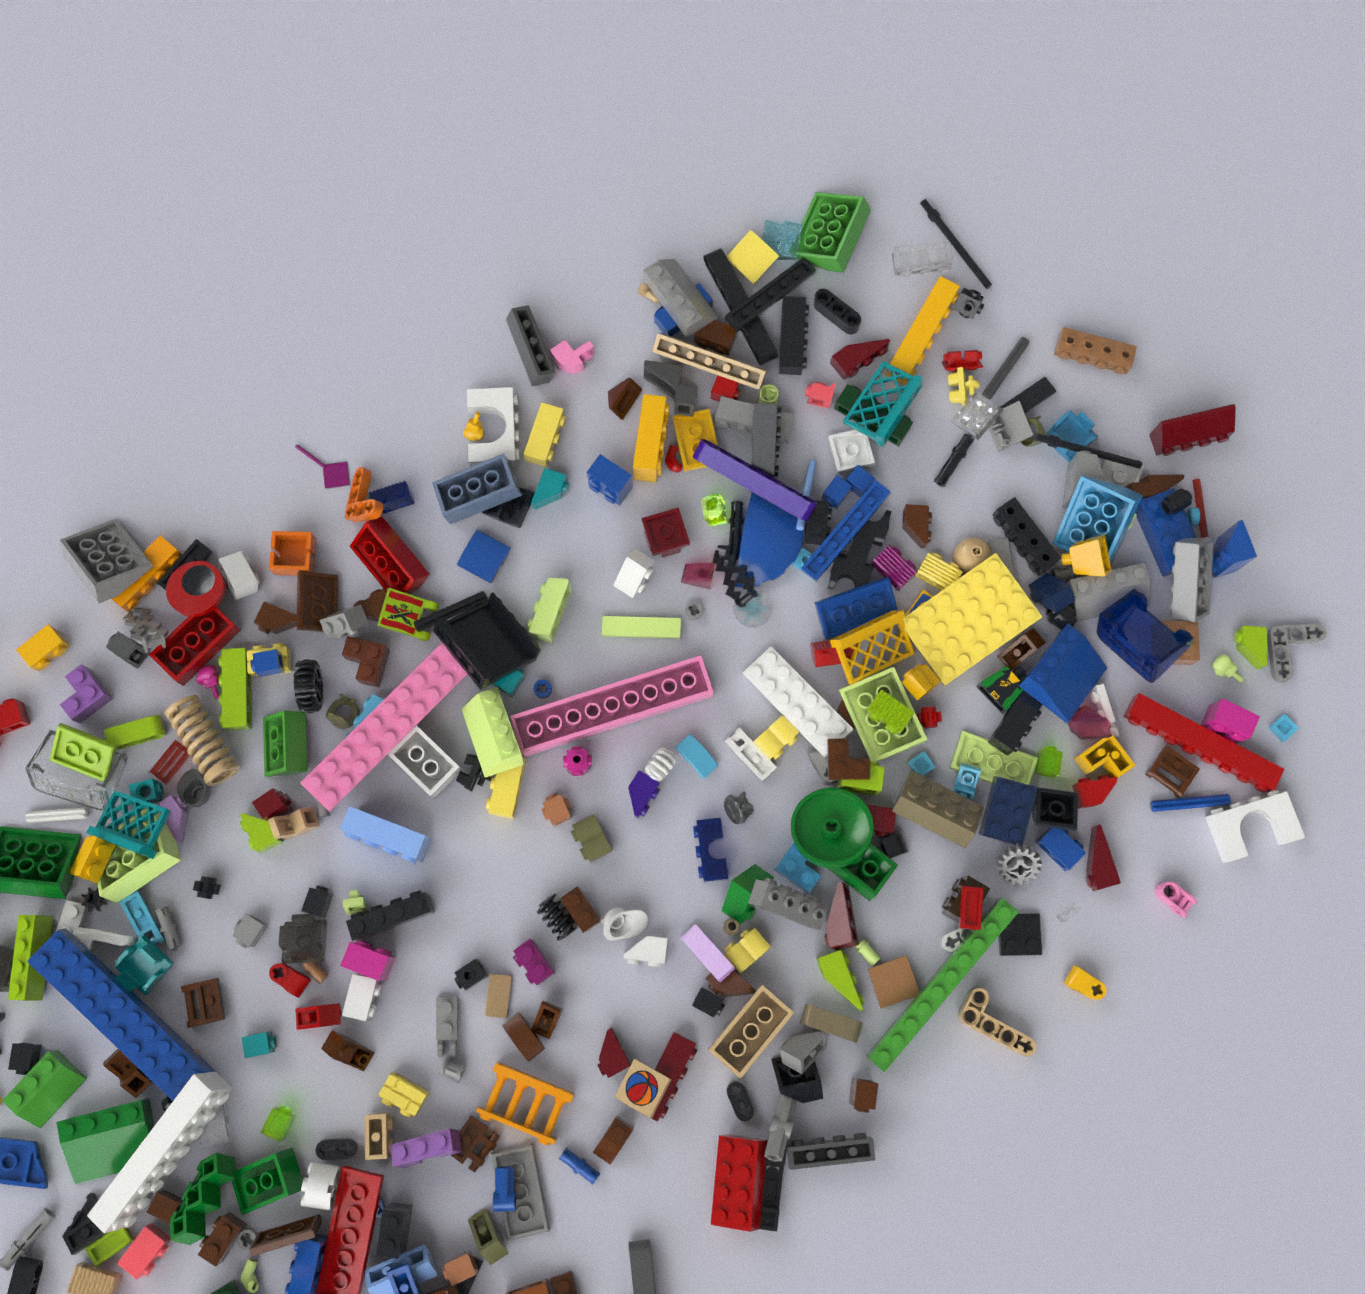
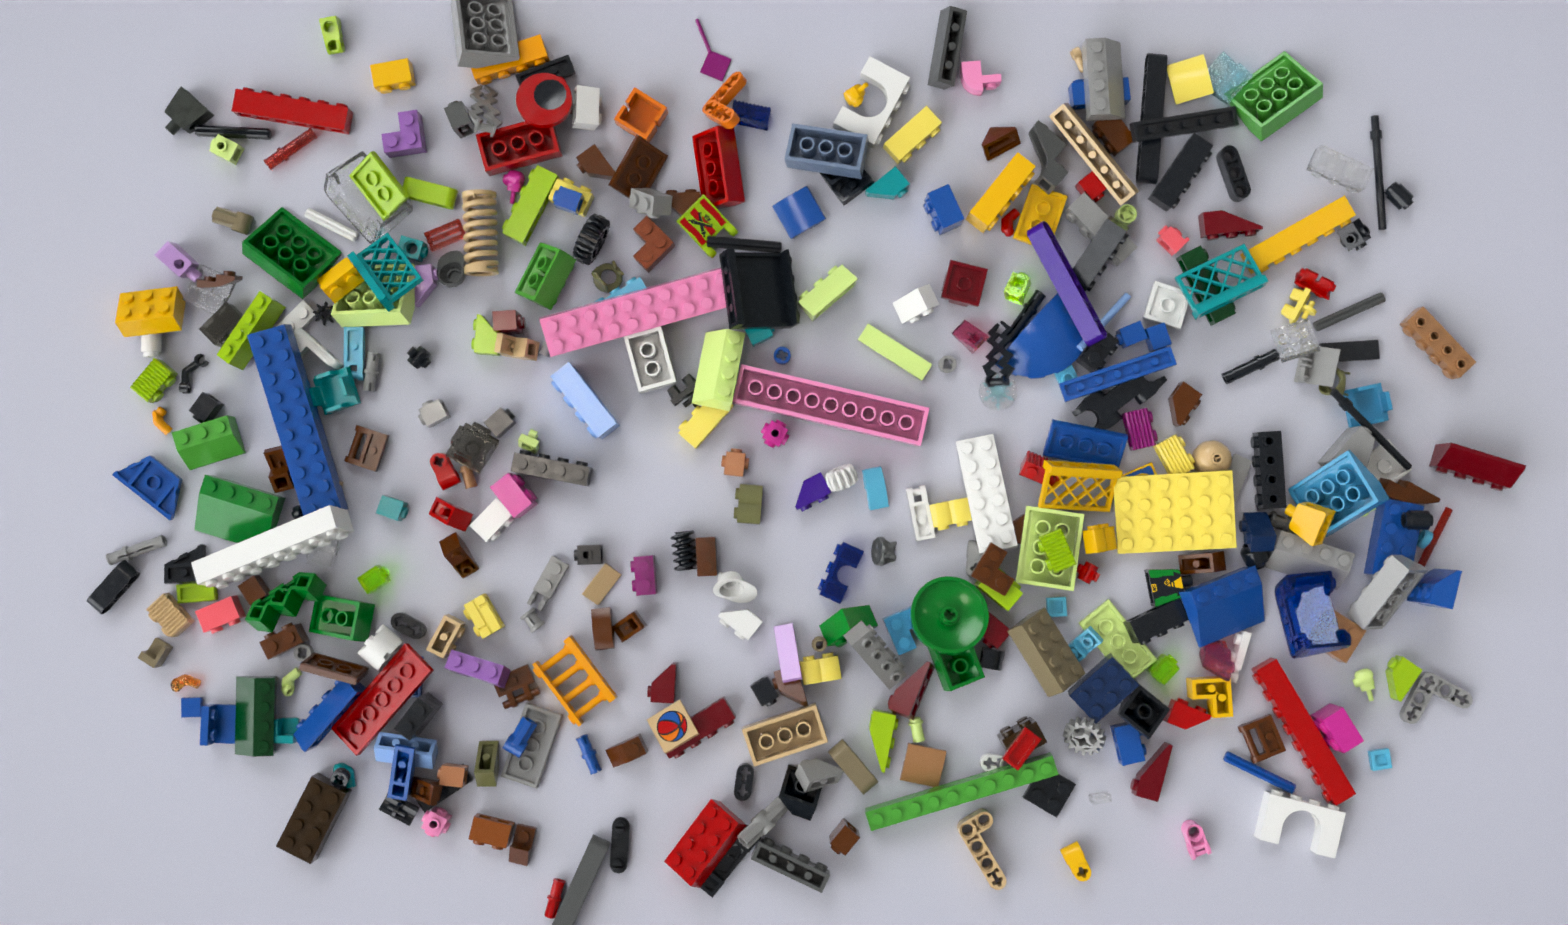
camera: 35 degrees right, 10 degrees up
(659, 1236) = (619, 845): none -> black piece
(985, 252) = (1399, 196): none -> black brick

